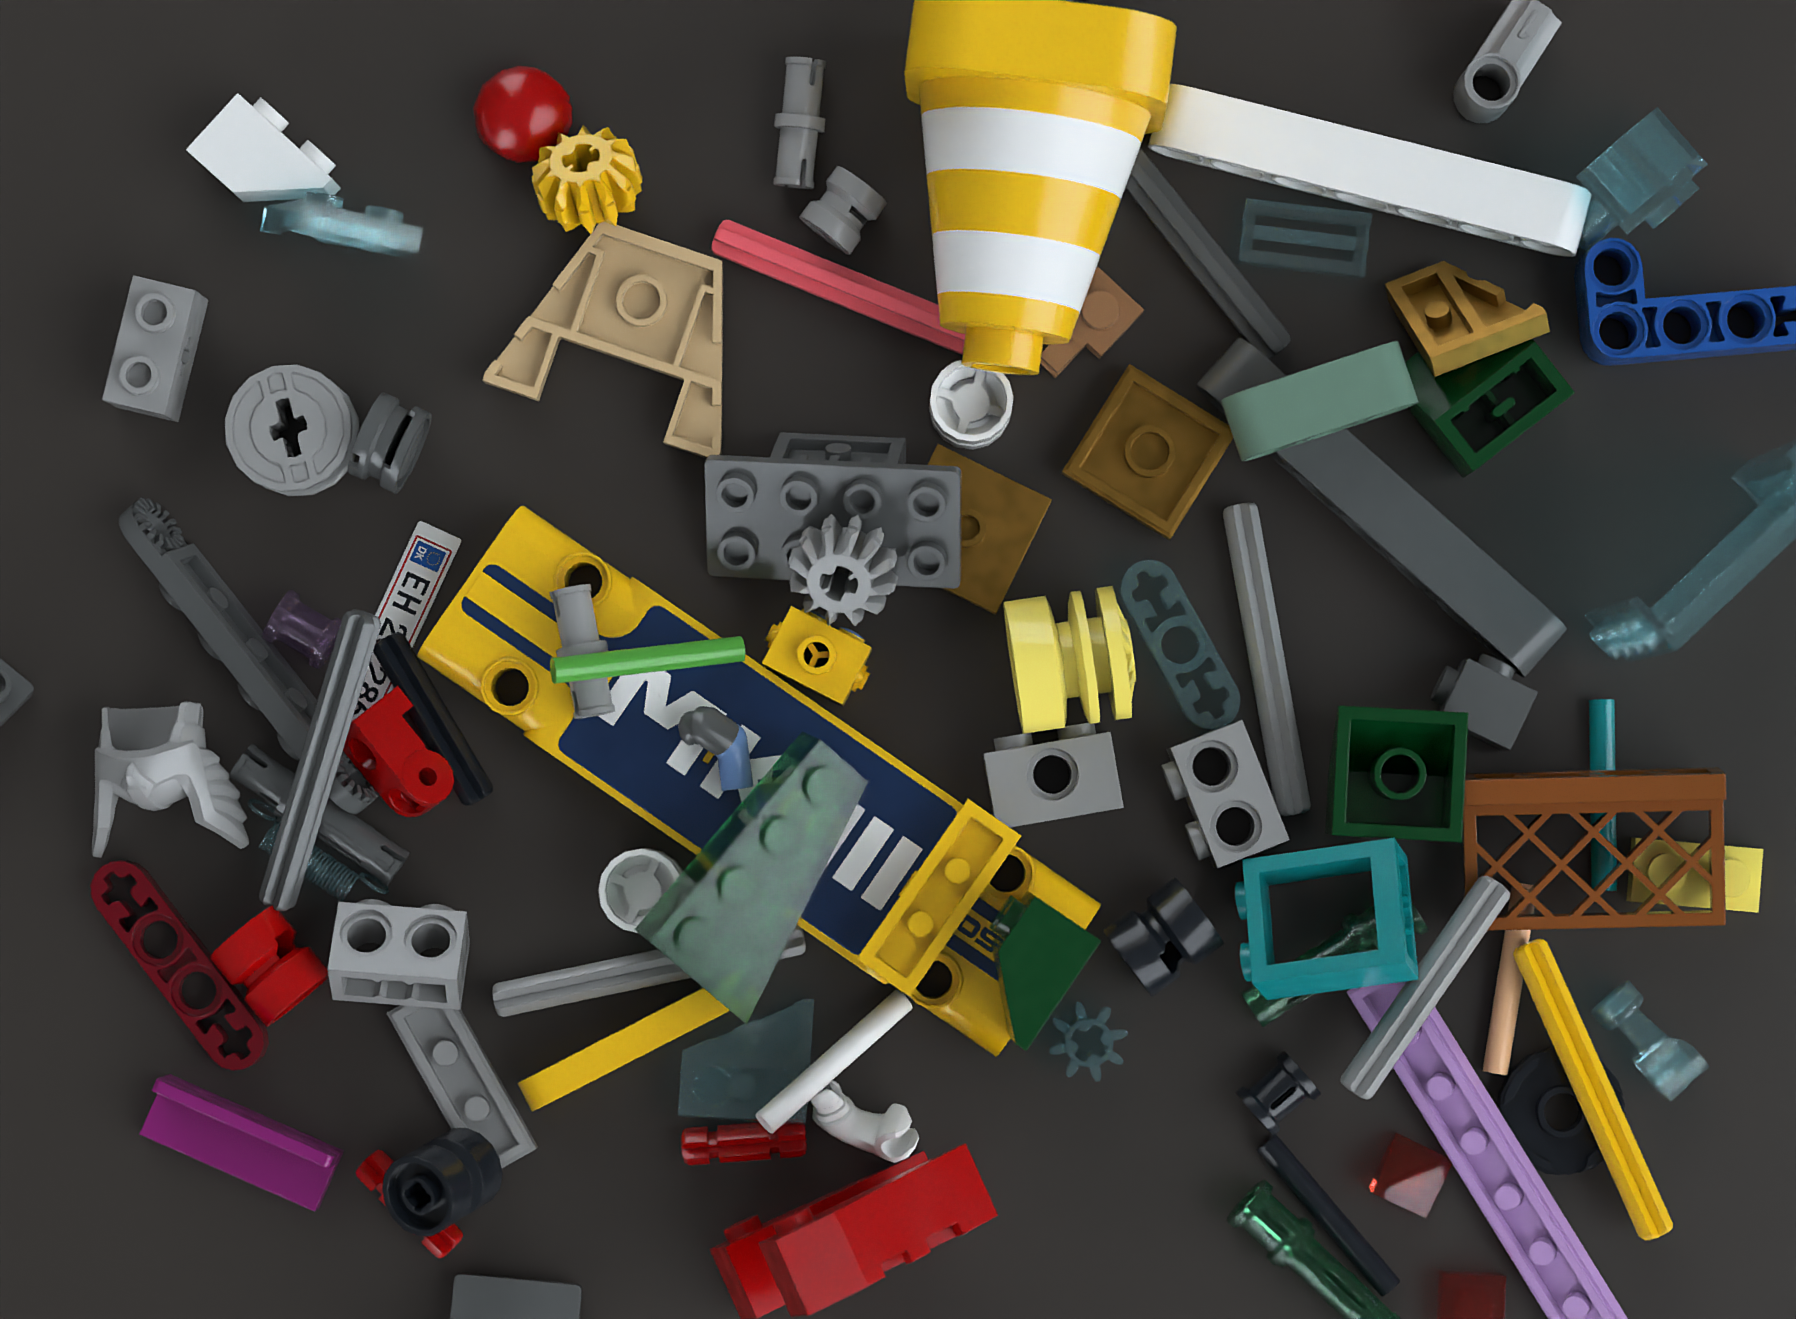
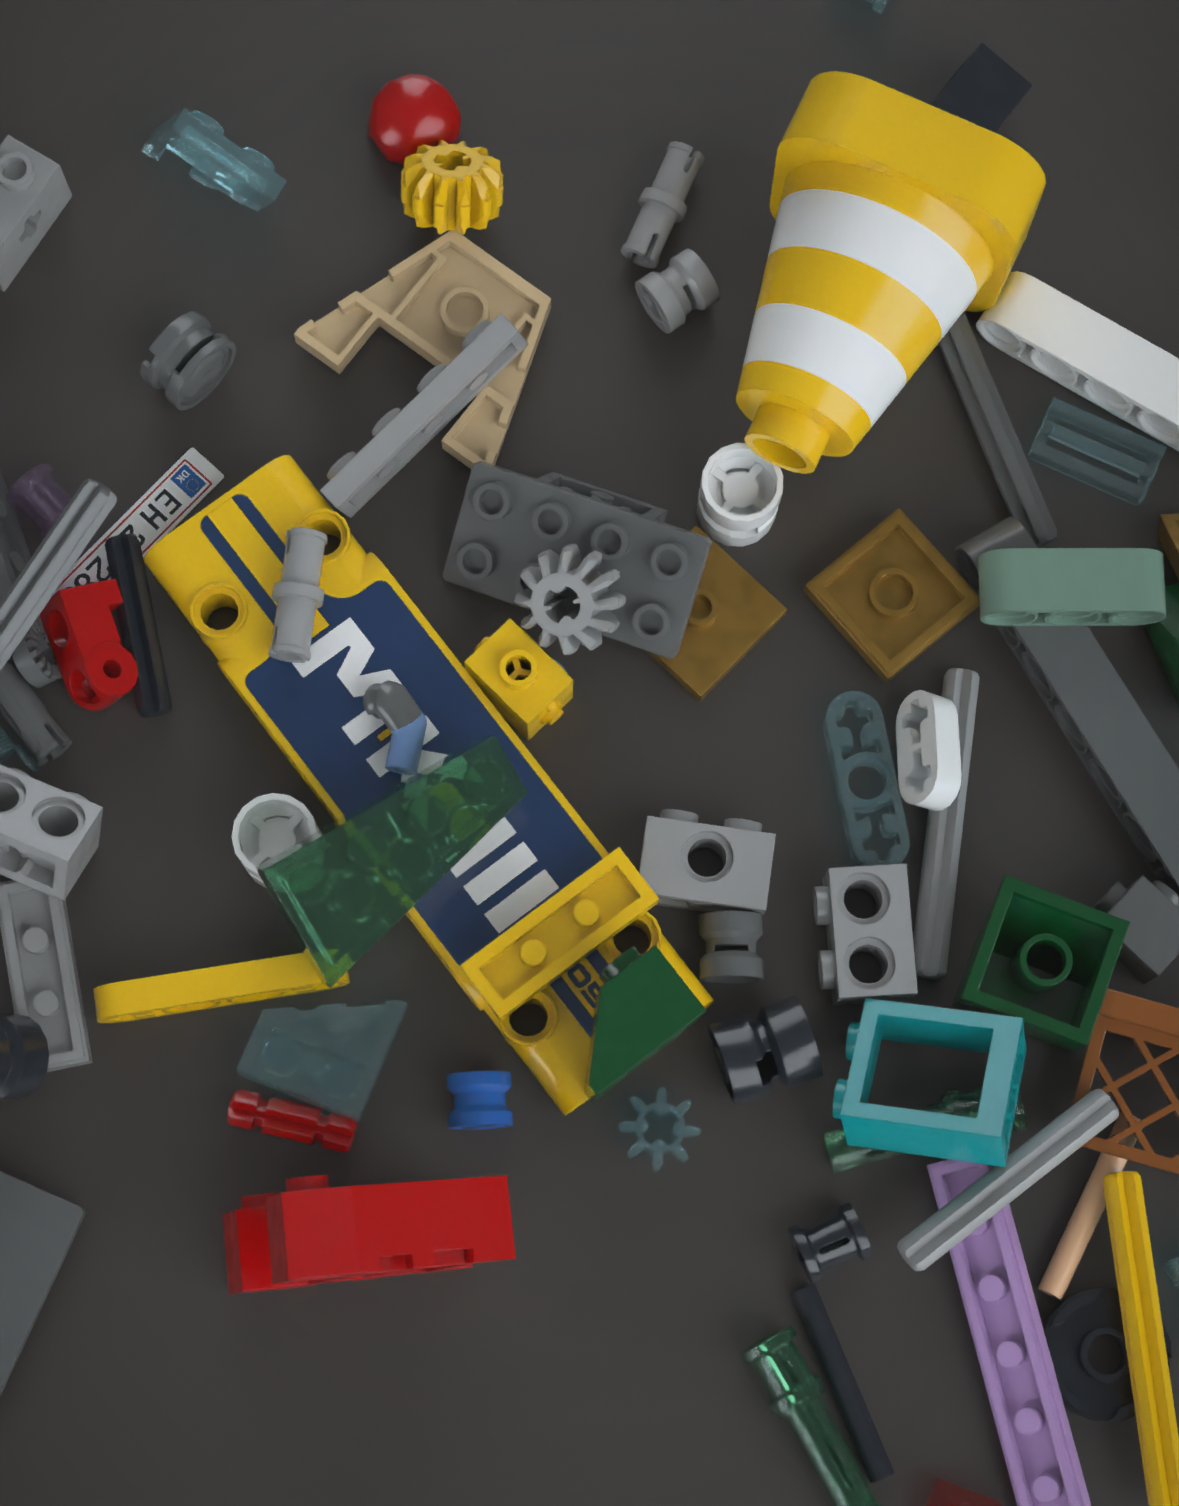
camera: 10 degrees right, 10 degrees down
(256, 159) = (158, 74): white slope -> none
(260, 414) = (76, 306): light grey piece -> none
(600, 979) = (227, 921): light grey axle -> none
(625, 448) = (406, 431): none -> light grey plate
(647, 659) = (356, 618): bright green bar -> none
(833, 1061) = (404, 1067): white bar -> none
(834, 283) = (648, 355): coral axle -> none
(881, 1134) = (419, 1152): white piece -> none
(912, 1068) = (479, 1100): none -> blue wheel
(1069, 659) = (757, 753): light yellow wheel -> none
(1098, 834) = (730, 935): none -> dark grey wheel
(1101, 322) = (879, 464): medium nougat plate -> none
(1230, 598) = (928, 750): none -> white beam
(1410, 1175) = (935, 1370): clear red slope -> none

